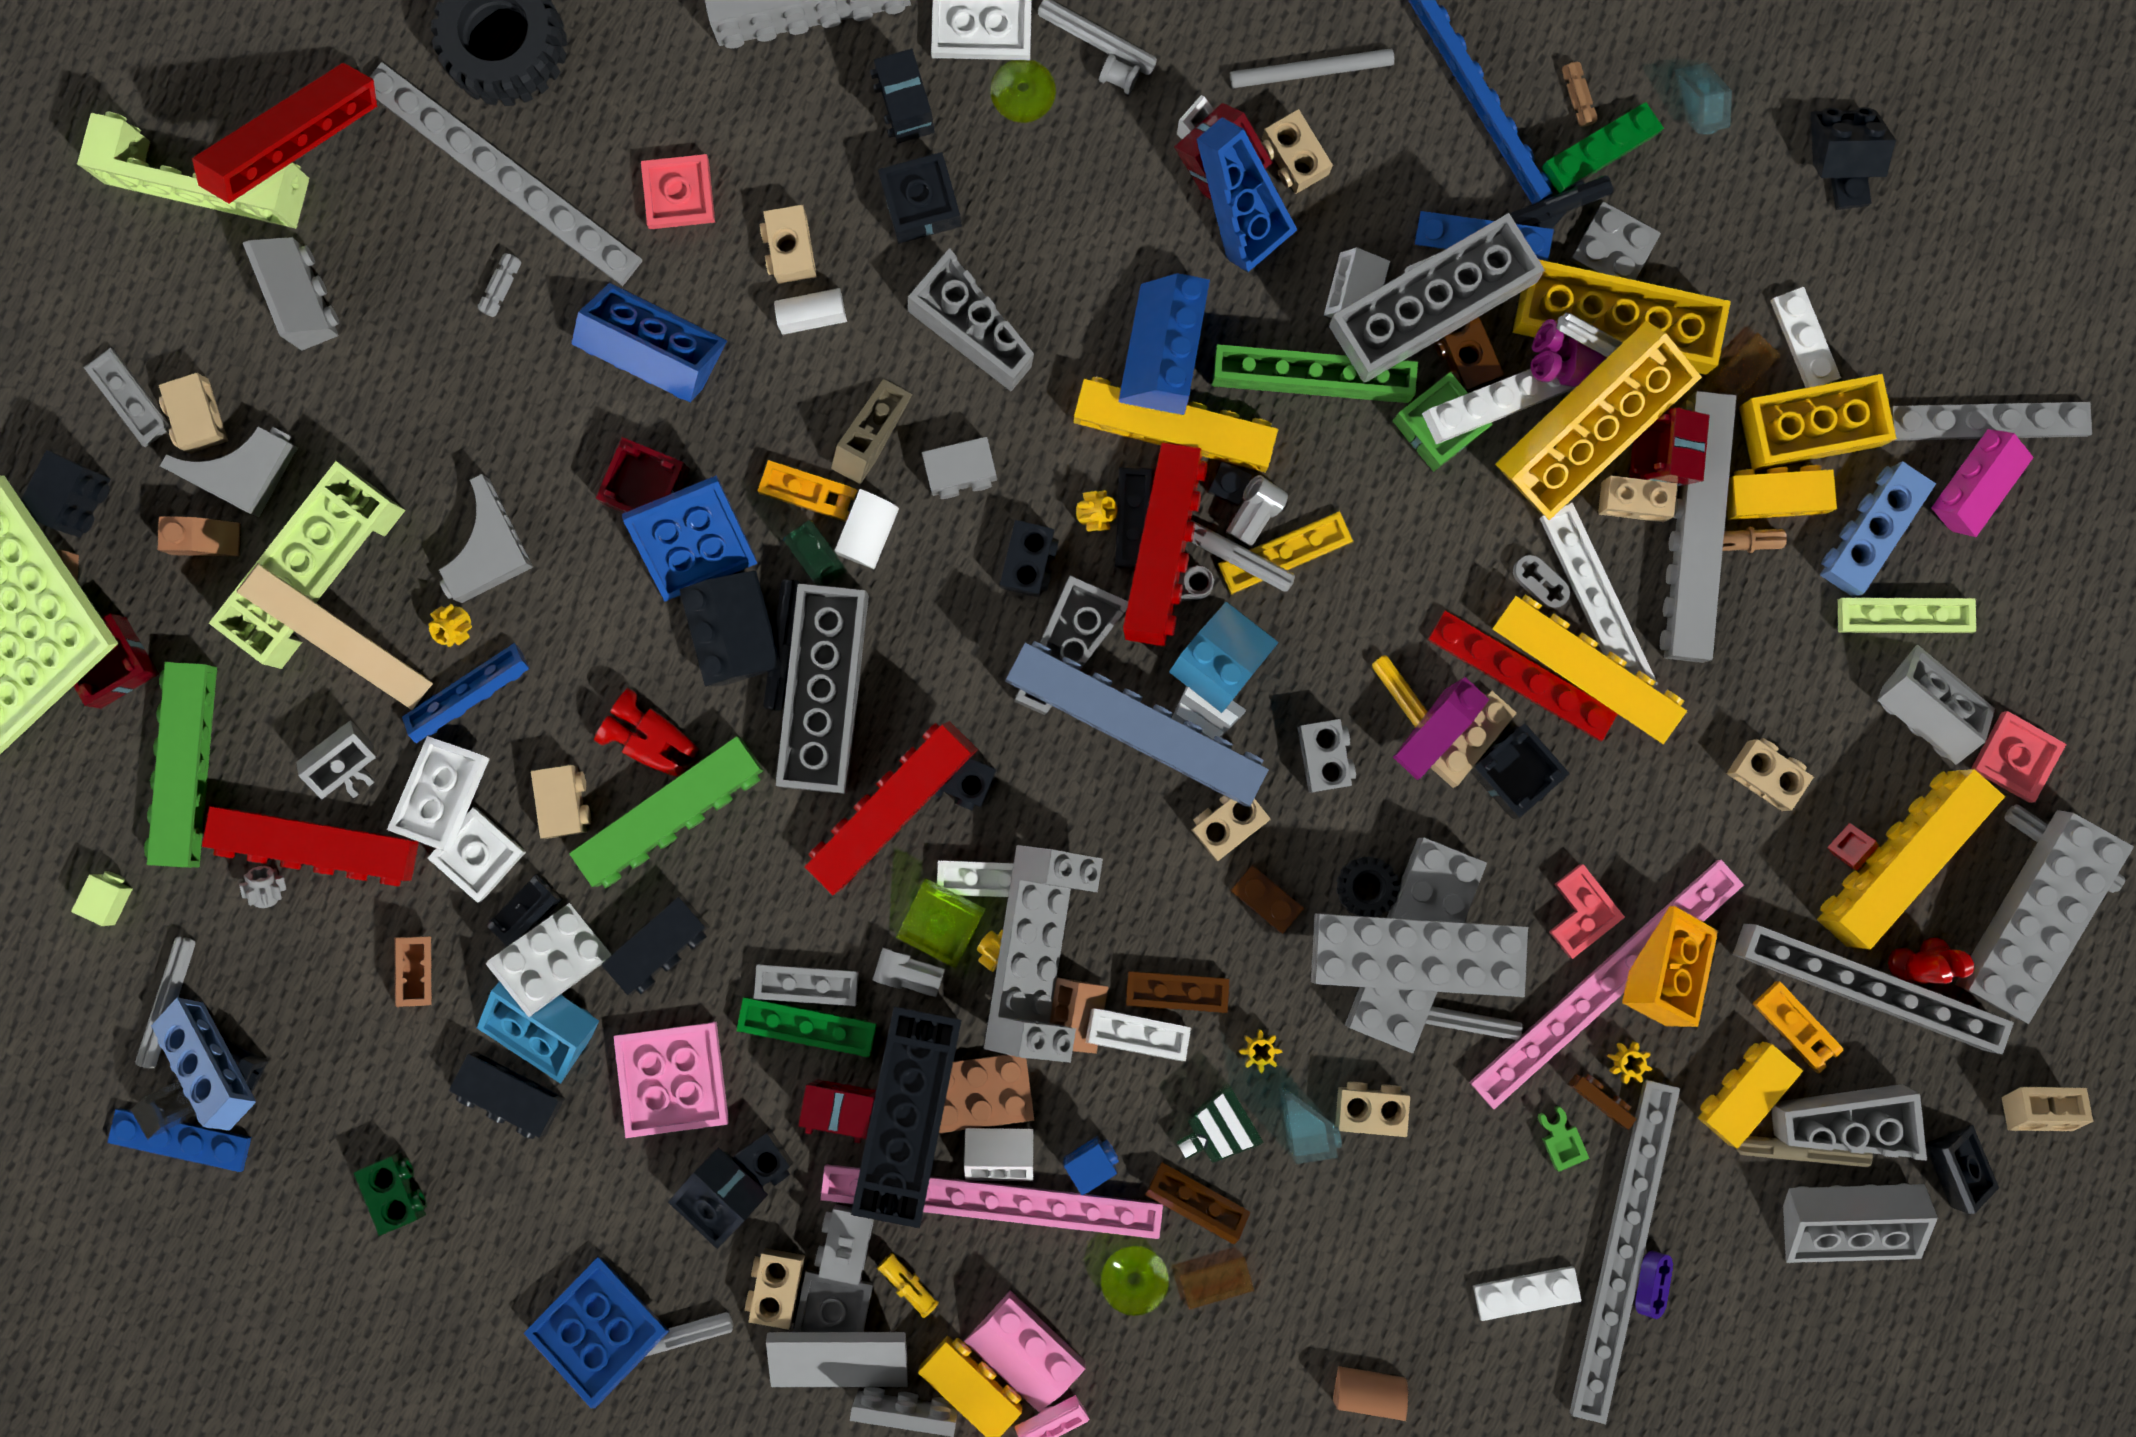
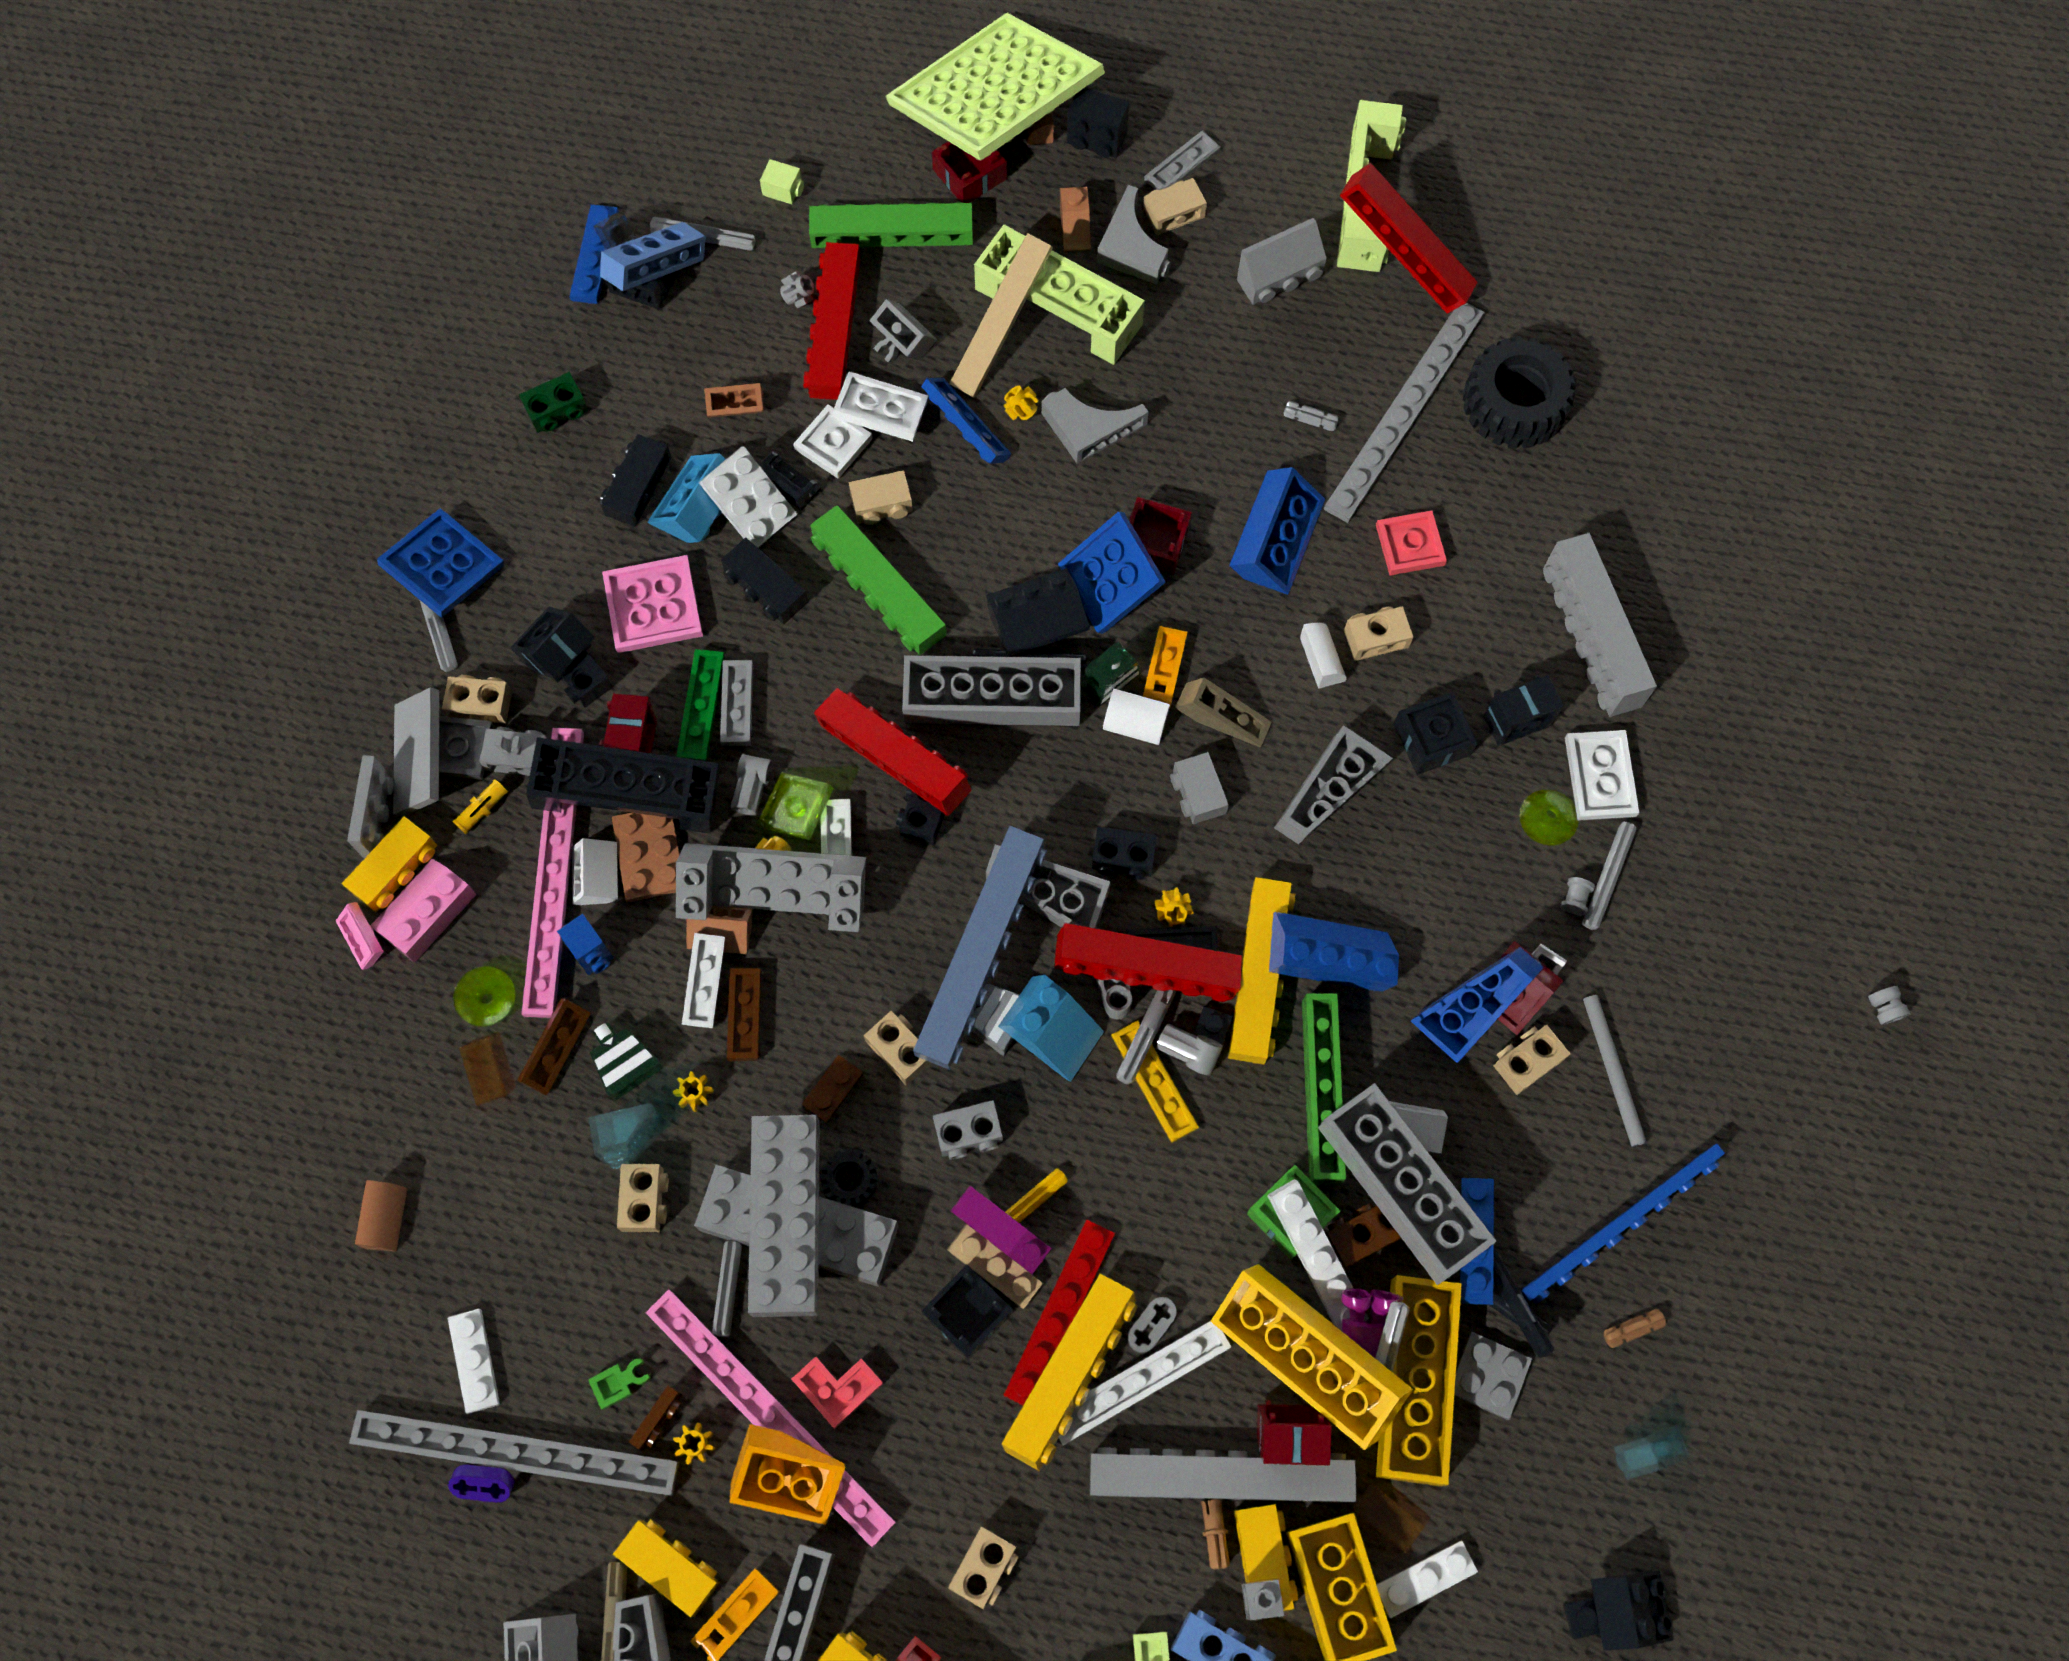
camera: 90 degrees right, 15 degrees down
(652, 738) = (941, 564): red piece -> none
(1602, 147) = (1584, 1352): green plate -> none
(1637, 498) = (1242, 1411): tan brick -> none
(1829, 498) = (1262, 1599): none -> light grey brick

